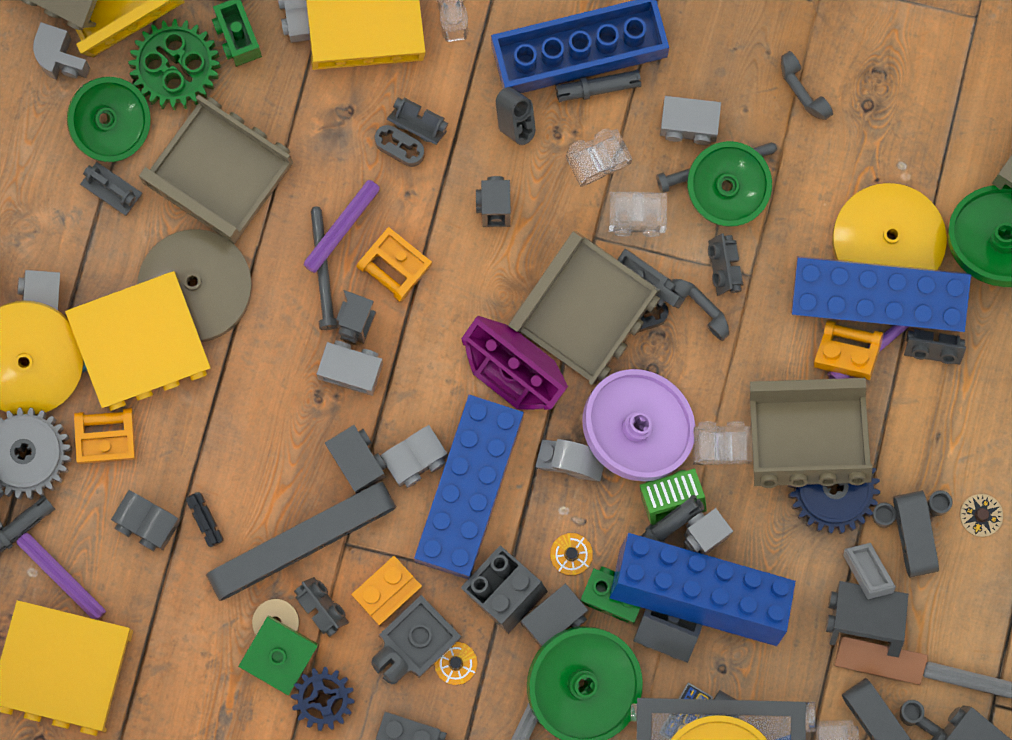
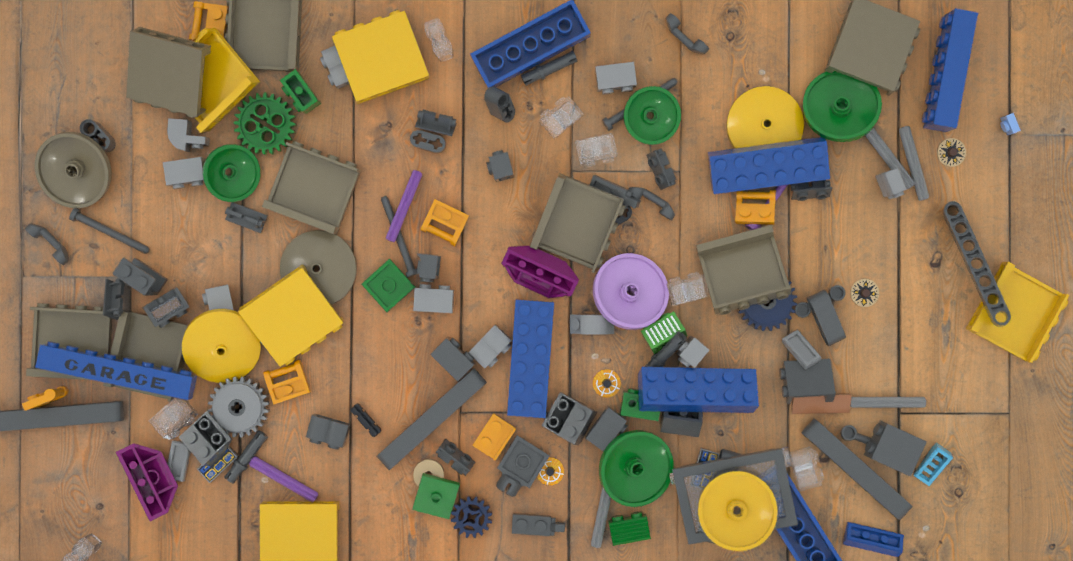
camera: 15 degrees left, 10 degrees up
(41, 103) = (184, 172): none -> light grey brick
(289, 333) = (388, 285): none -> green plate

